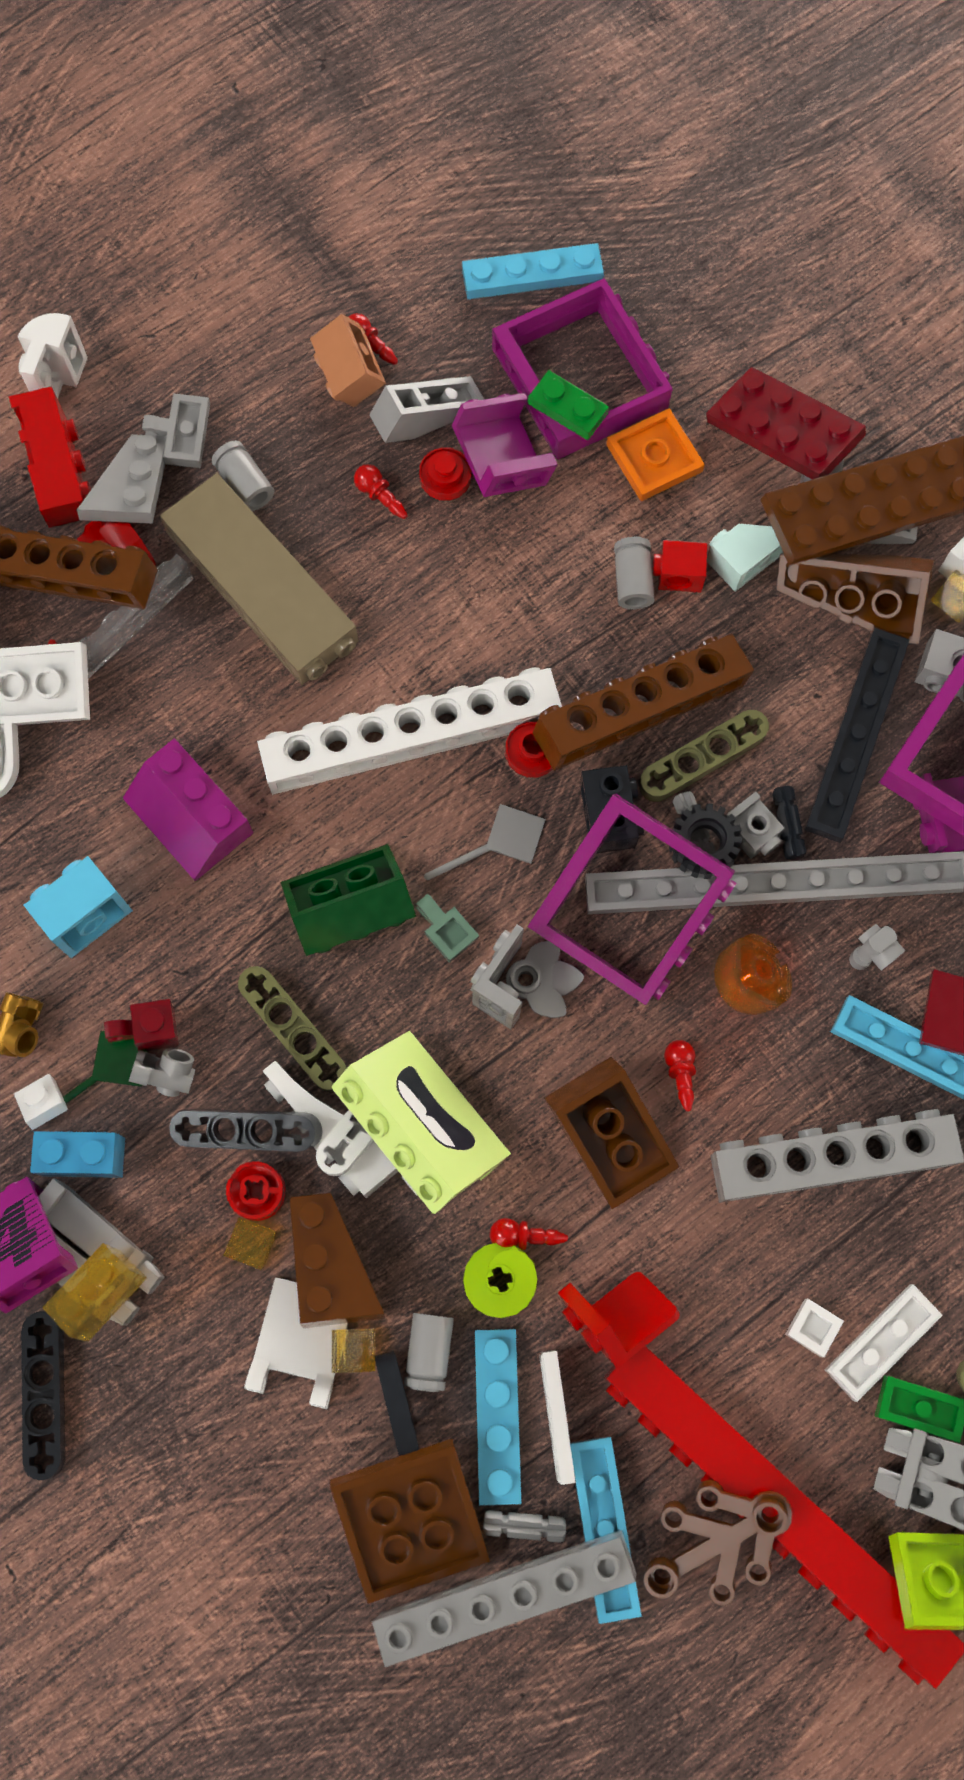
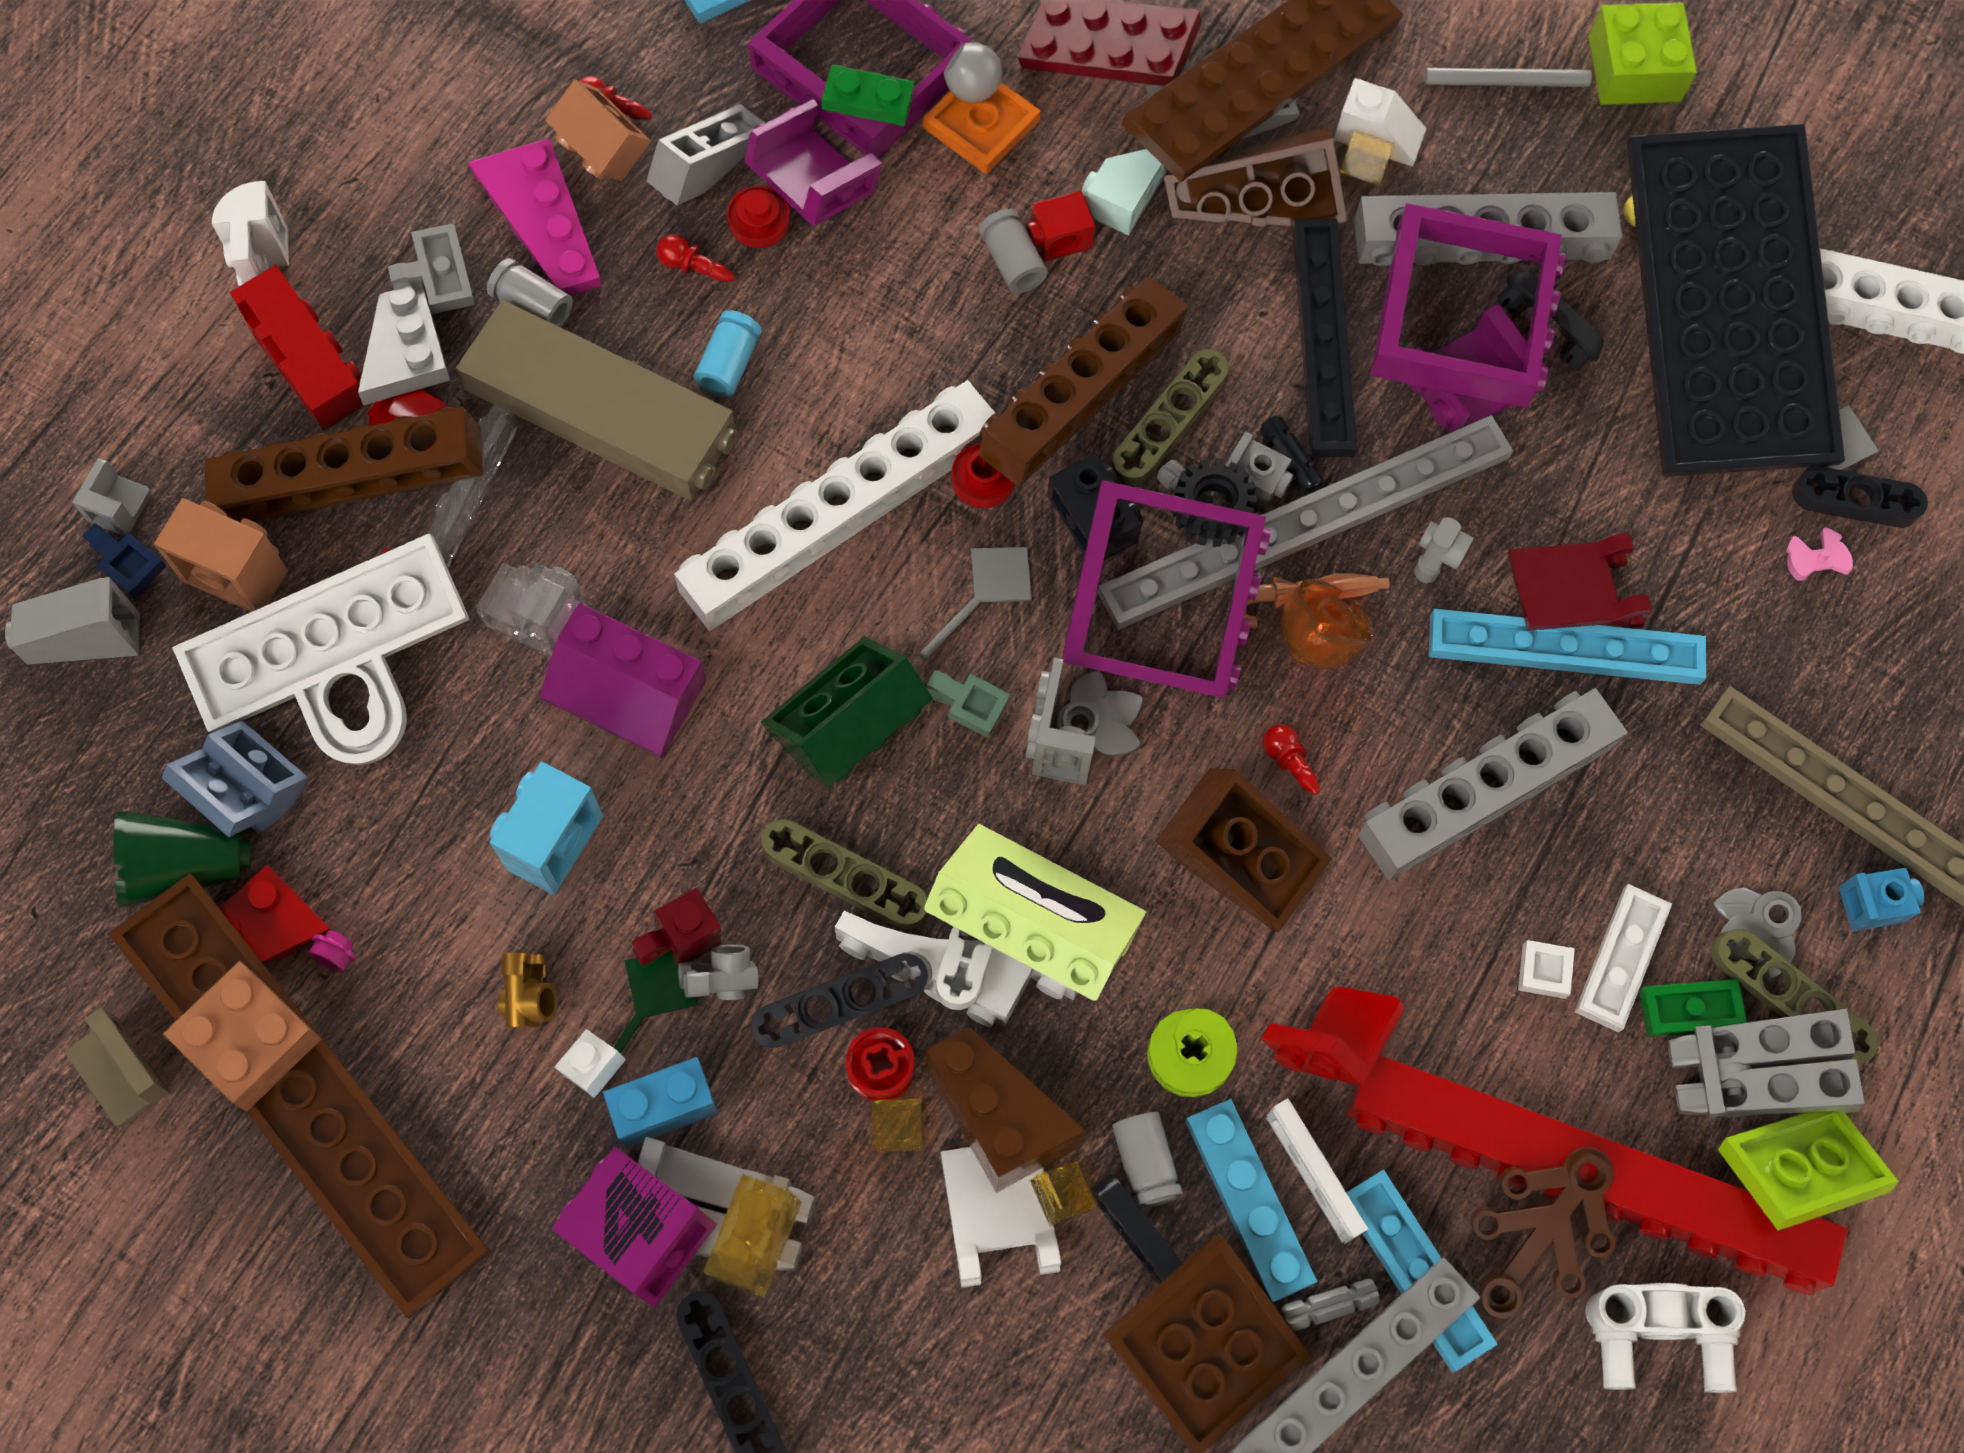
camera: 25 degrees left, 5 degrees down
(140, 723) = (530, 604): none -> clear brick
(280, 408) = (540, 211): none -> dark pink wing
(374, 577) = (727, 353): none -> medium azure piece
(509, 1233) = (1180, 999): red bar -> none
(660, 415) = (973, 73): none -> light grey piece
(730, 931) = (1351, 585): none -> nougat piece
(789, 1650) = (1667, 1313): none -> white piece

